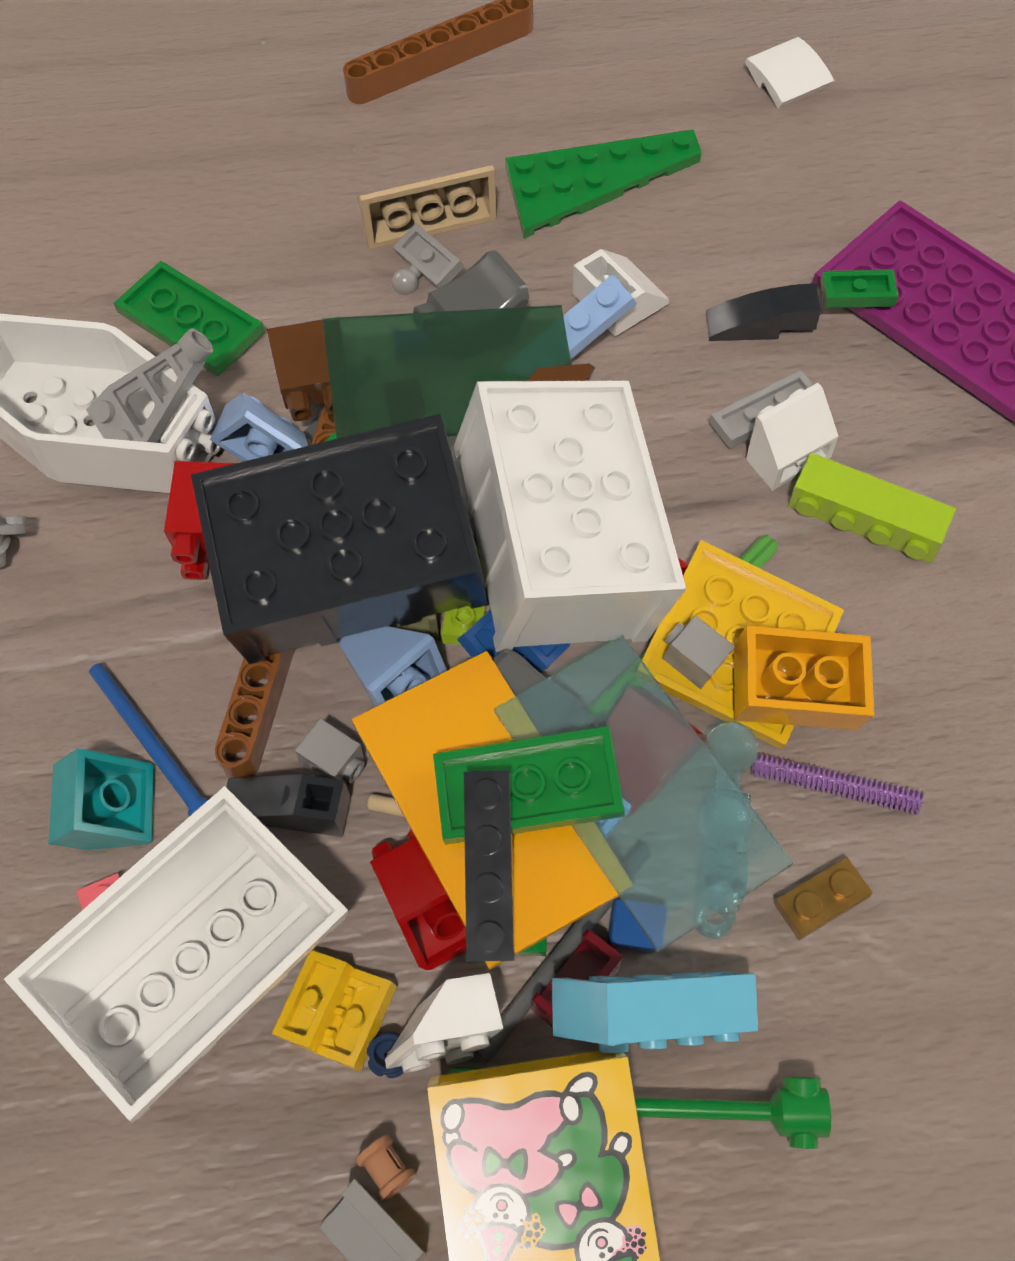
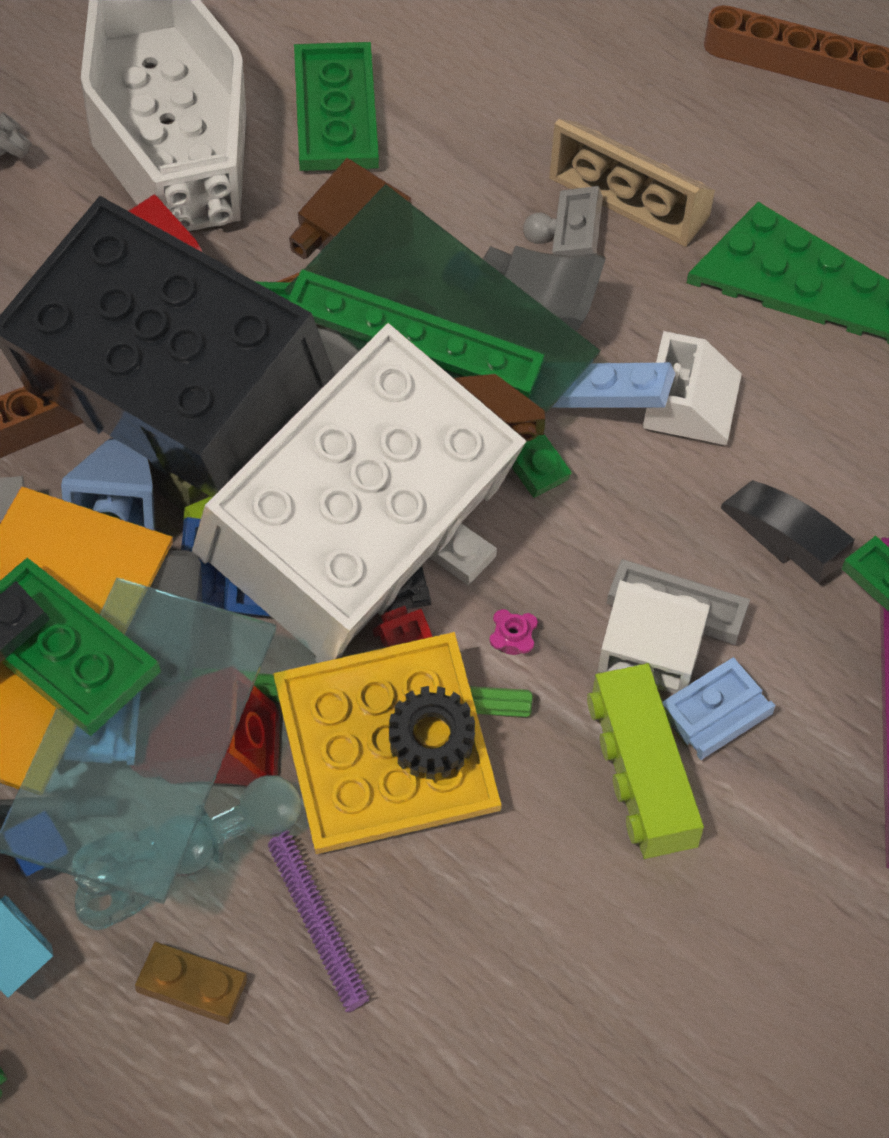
camera: 45 degrees right, 5 degrees down
(113, 412) = (174, 119): light grey plate -> none
(254, 431) = (252, 235): light blue slope -> none
(453, 390) = (443, 341): none -> green plate
(696, 650) = (326, 701): light grey brick -> none
(708, 522) = (513, 642): none -> dark pink plate
(776, 587) = (435, 705): none -> black tyre
(803, 678) = (376, 804): light orange brick -> none
(864, 441) = (717, 708): none -> light blue plate

